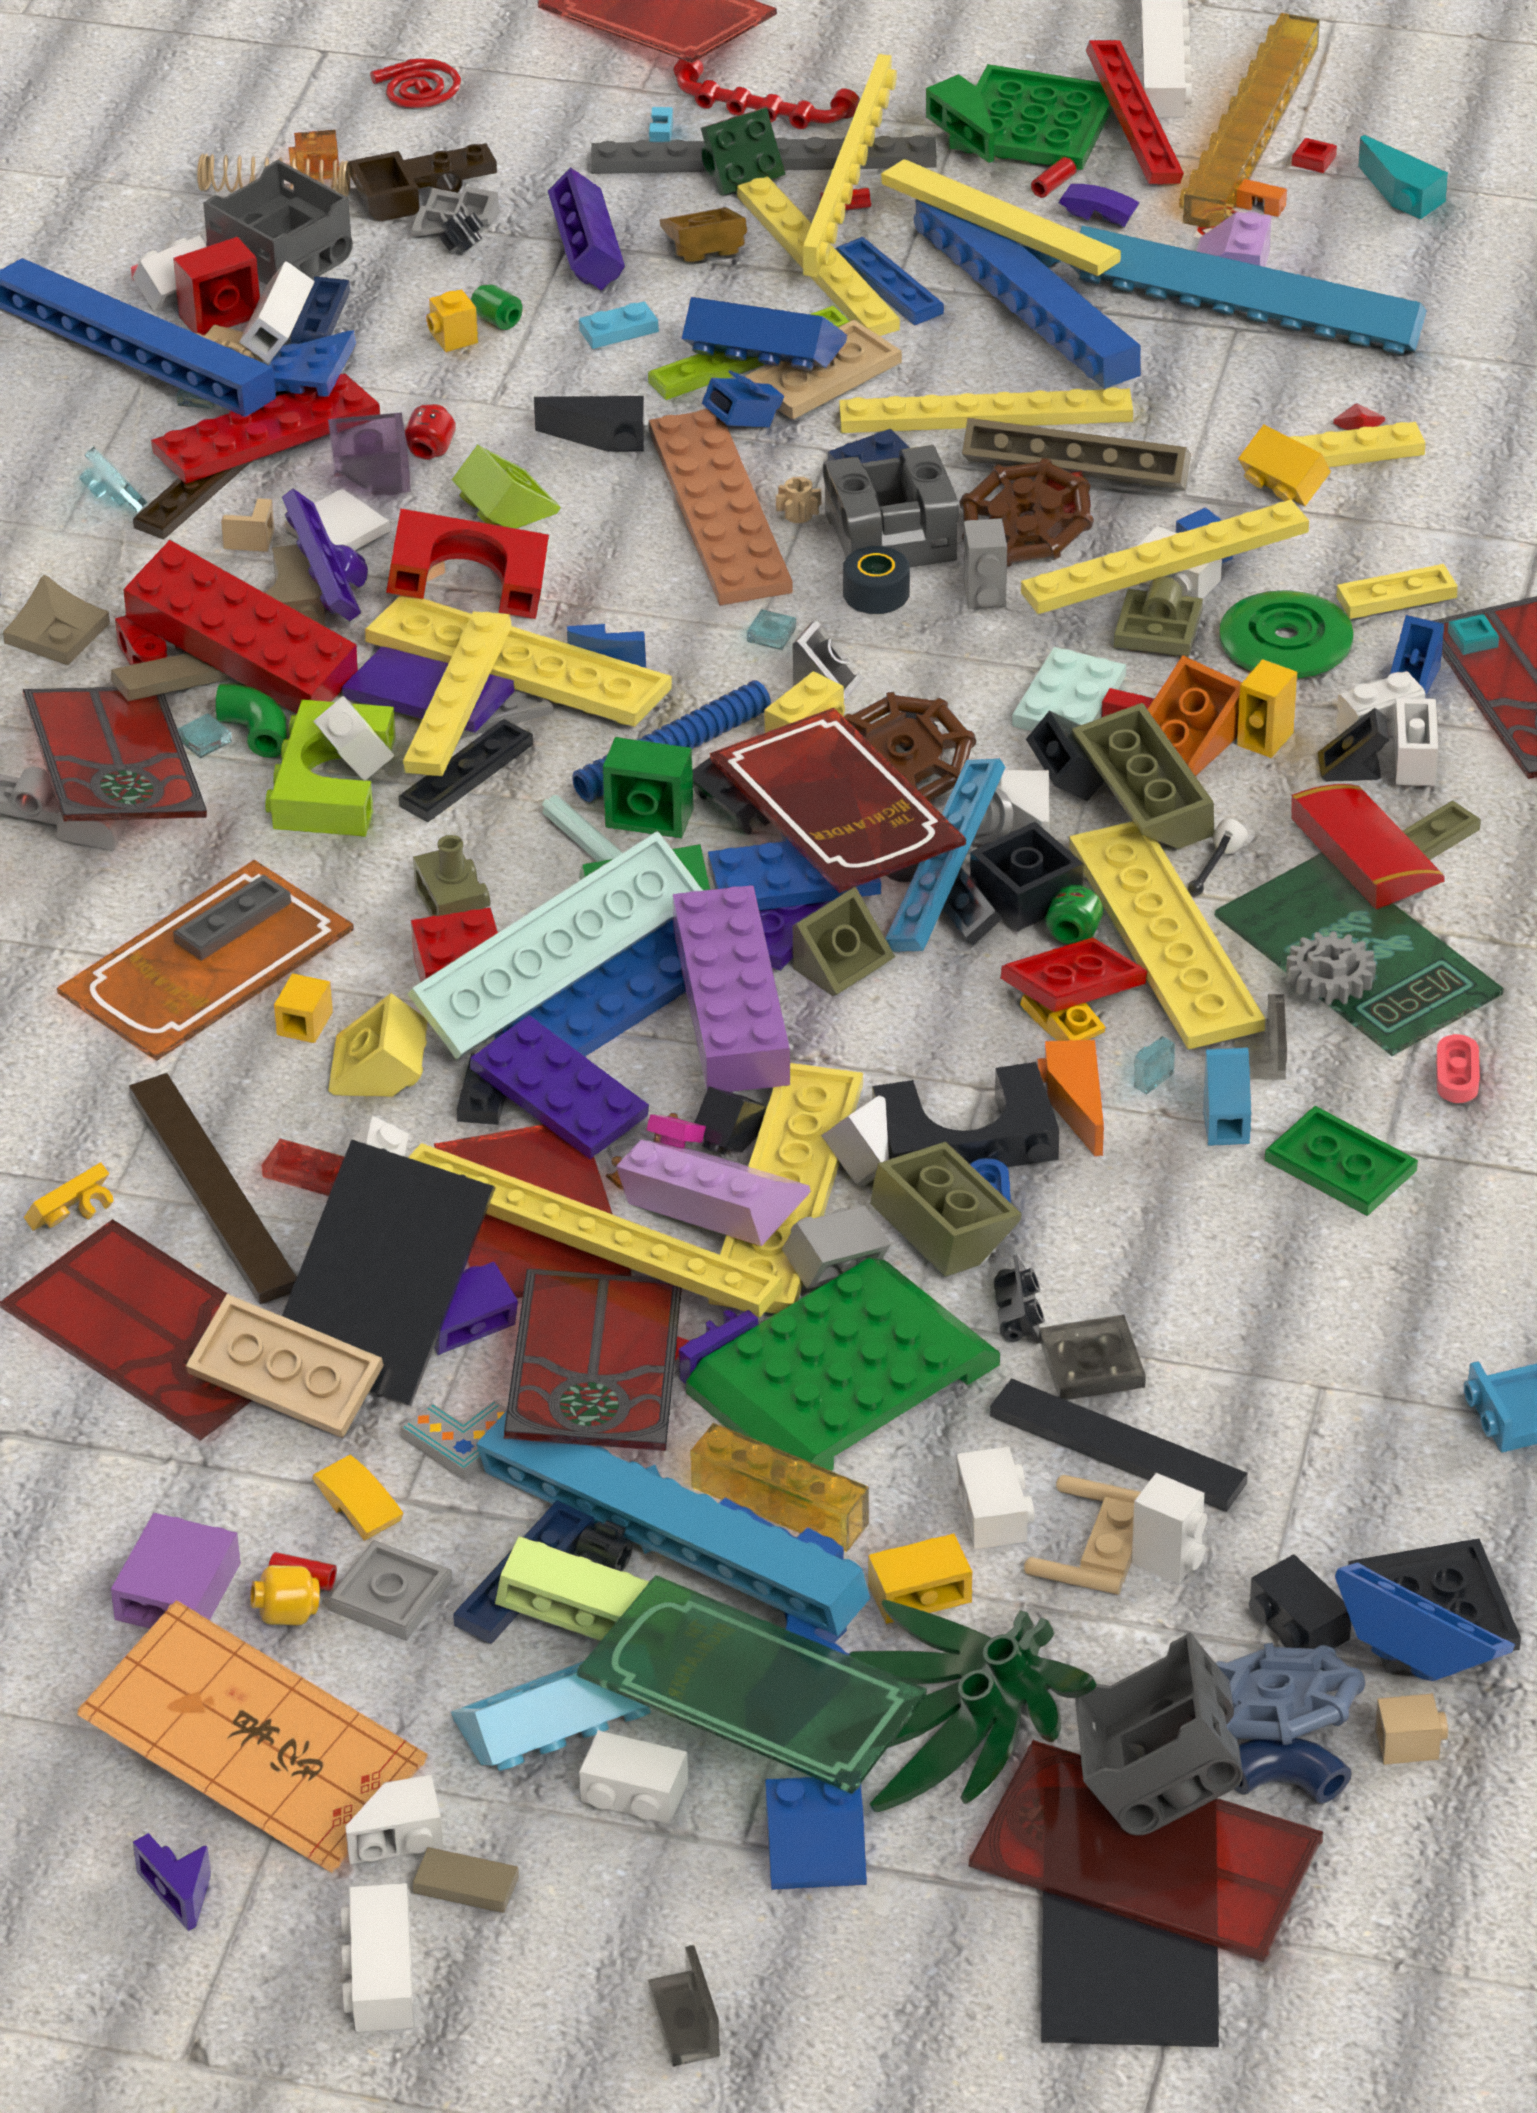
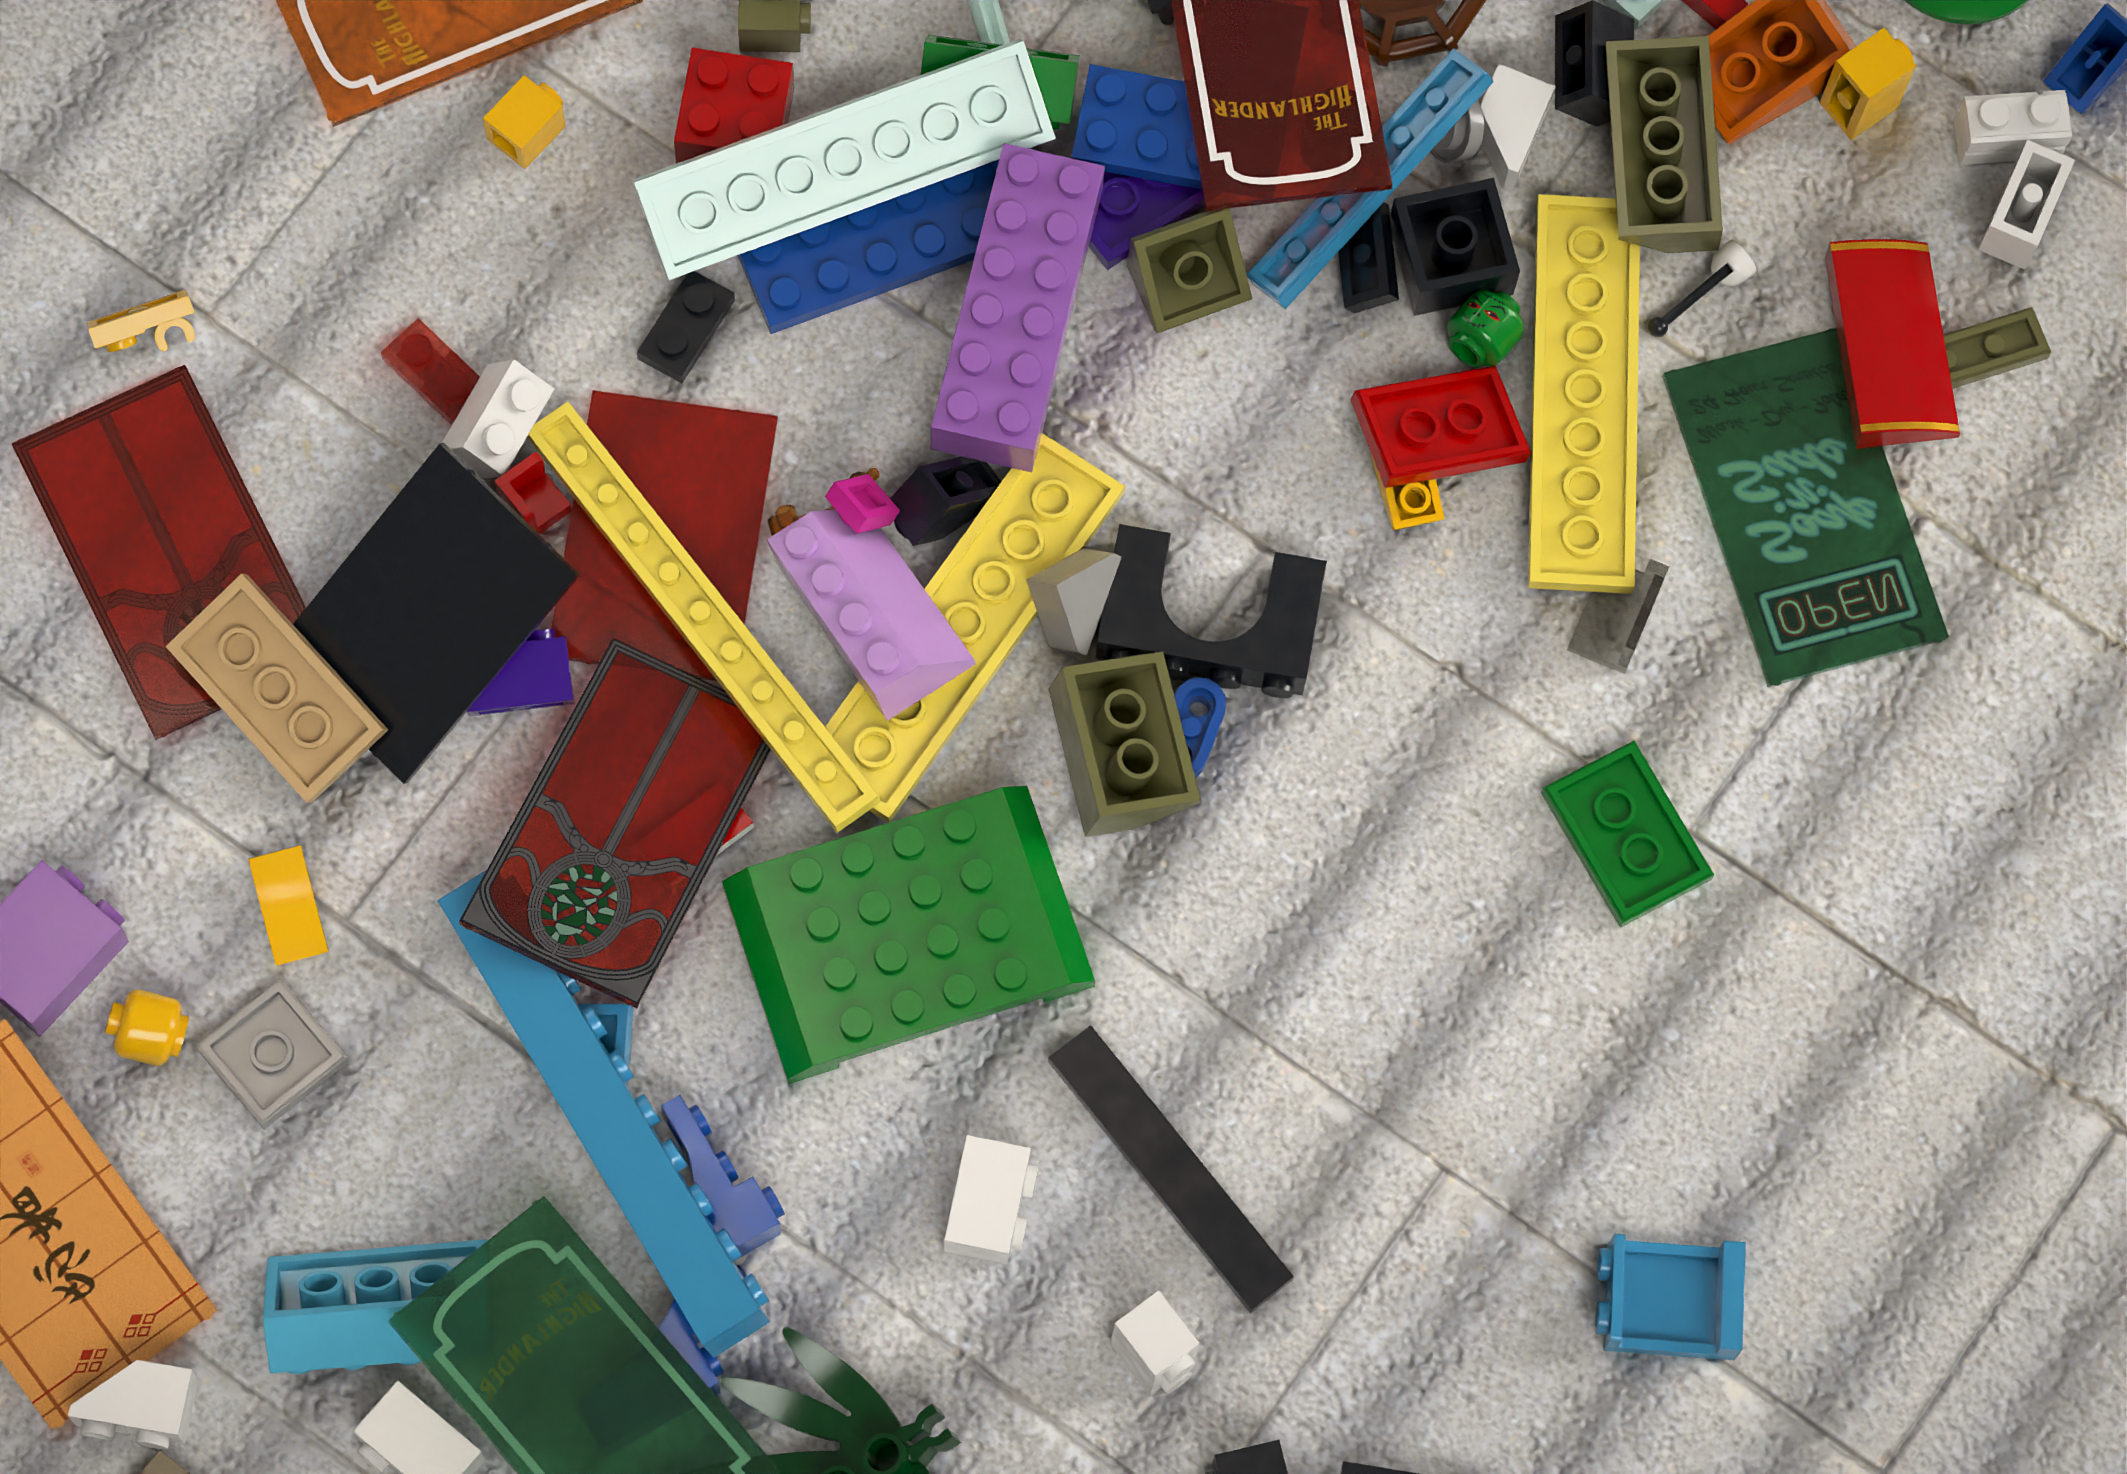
camera: 15 degrees right, 30 degrees up
(213, 1188) = (316, 360): dark brown tile -> none
(324, 1572) = (192, 995): red axle -> none
(379, 1051) = (581, 229): light yellow slope -> none
(449, 1439) = (426, 860): light grey tile -> none
(479, 1614) = (424, 1094): dark blue plate -> none
(559, 1086) = (764, 370): dark purple plate -> none
(565, 1589) = (458, 1164): yellowish green brick -> none
(605, 1545) = (521, 1104): black gear -> none
(713, 1339) = (754, 848): dark purple plate -> none
(779, 1485) = (755, 1090): clear yellow brick -> none
(833, 1244) = (969, 757): light grey brick -> none
(921, 1575) = (854, 1284): yellow brick -> none
(1018, 1307) = (1160, 890): black hinge -> none
(1074, 1088) = (1363, 599): orange slope -> none
(1092, 1357) = (1196, 1031): clear smoke plate -> none
(1109, 1545) = (1089, 1319): tan plate -> none
(1154, 1065) = (1471, 604): clear light blue plate -> none
(1227, 1096) = (1527, 704): dark azure slope -> none
(1331, 968) = (1770, 537): light grey gear -> none
(1354, 751) = (1948, 184): black slope -> none
(1457, 1068) = (1827, 752): coral plate -> none

